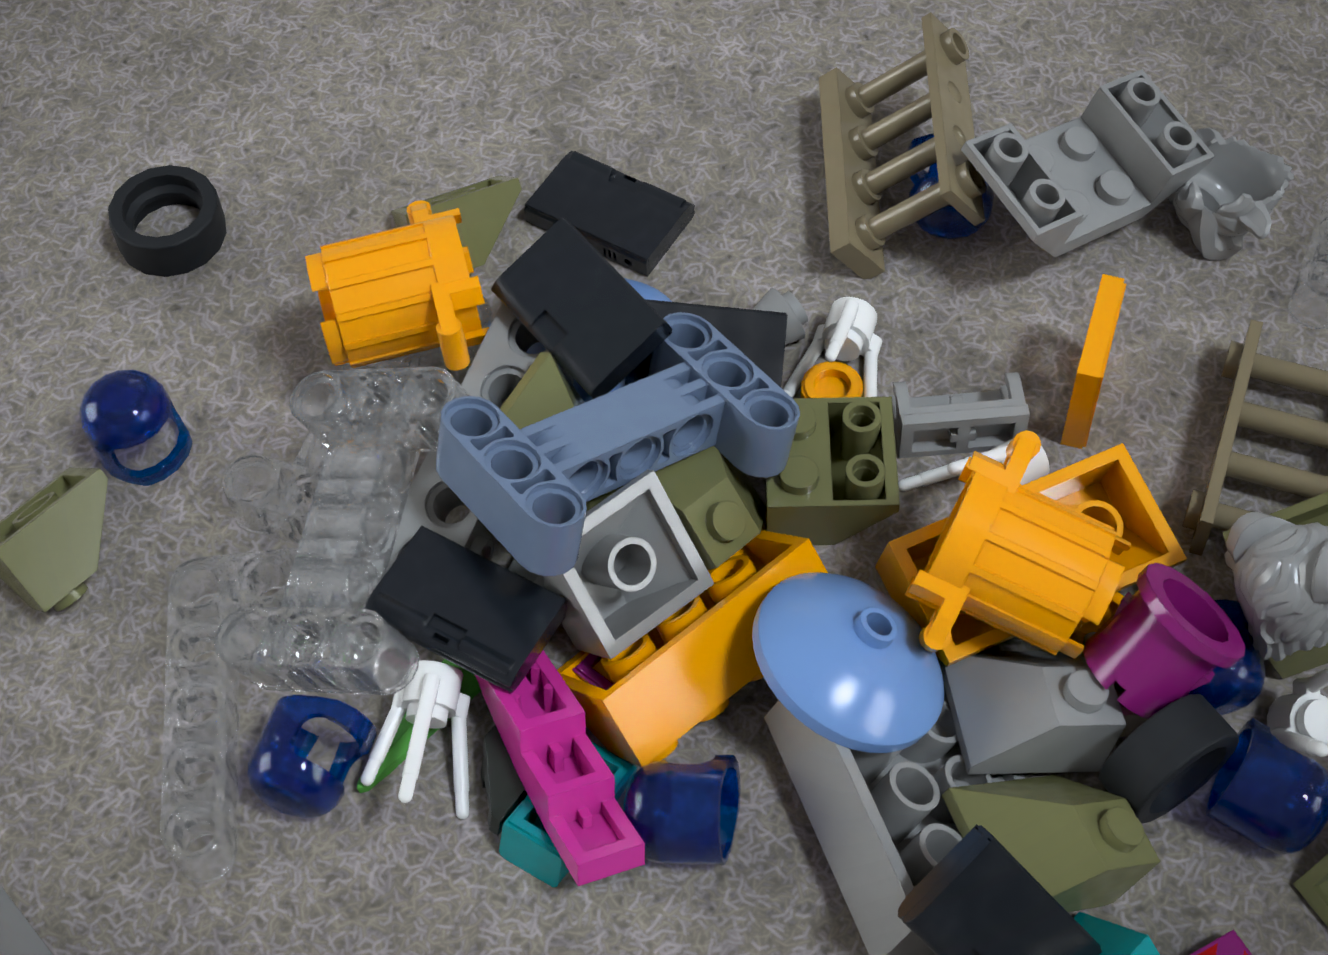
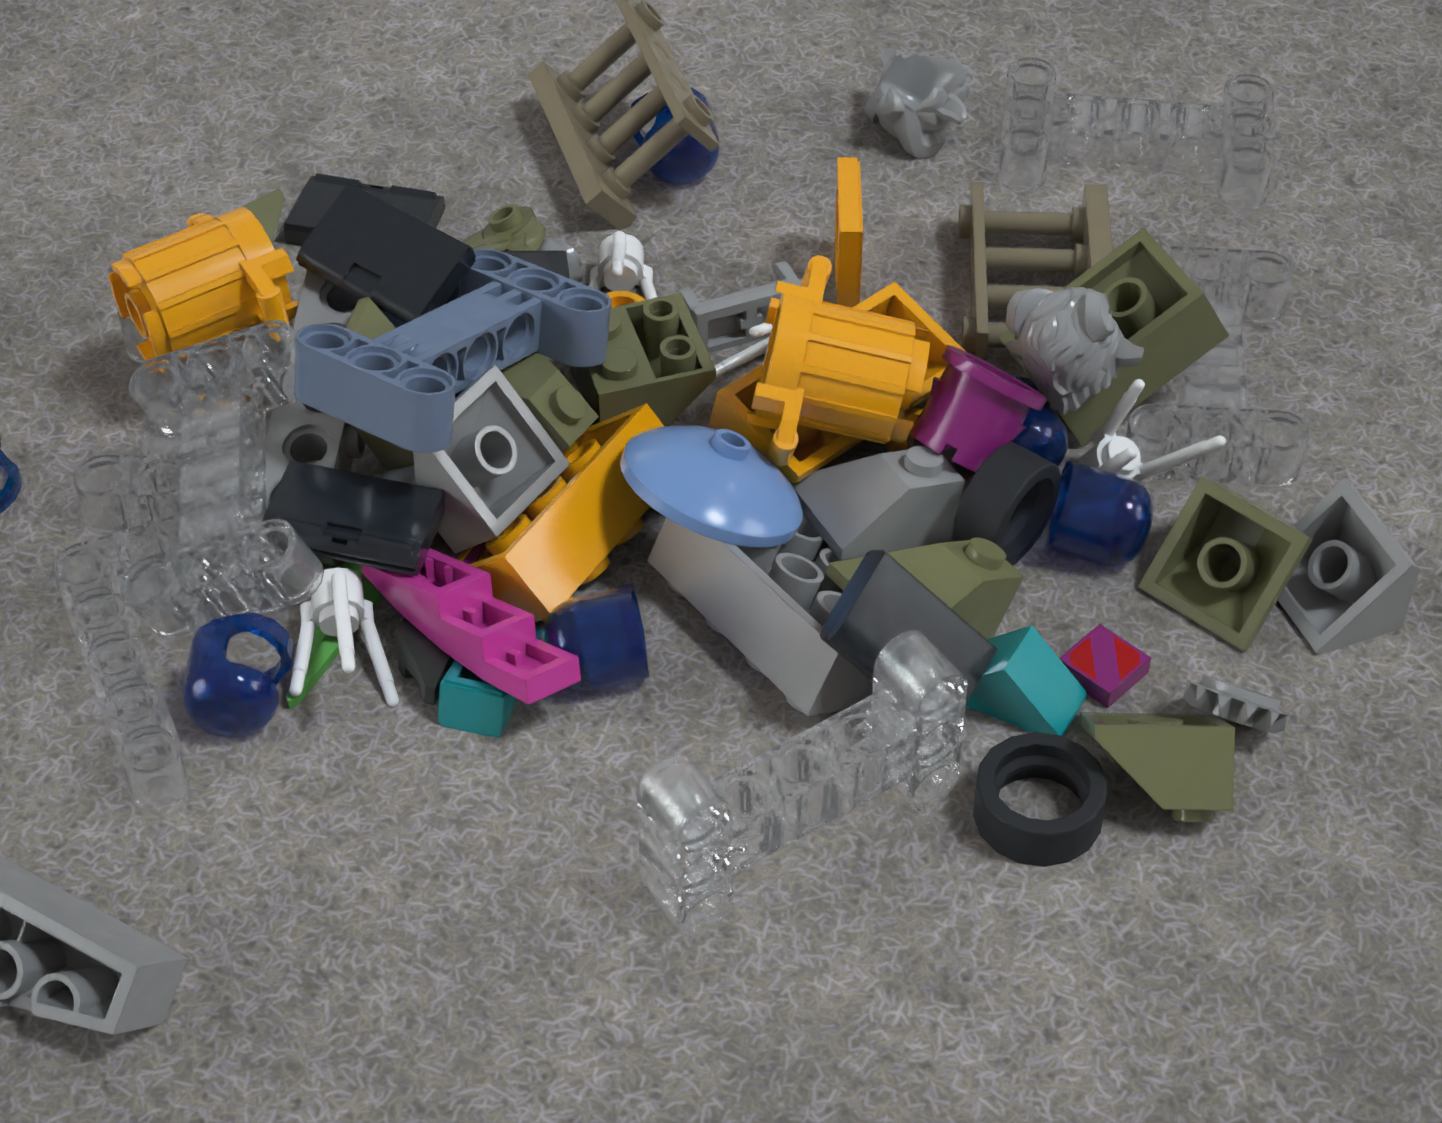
camera: 20 degrees left, 10 degrees down
(743, 267) = (509, 230): none -> olive plate
(1095, 169) = (806, 95): light grey slope -> none

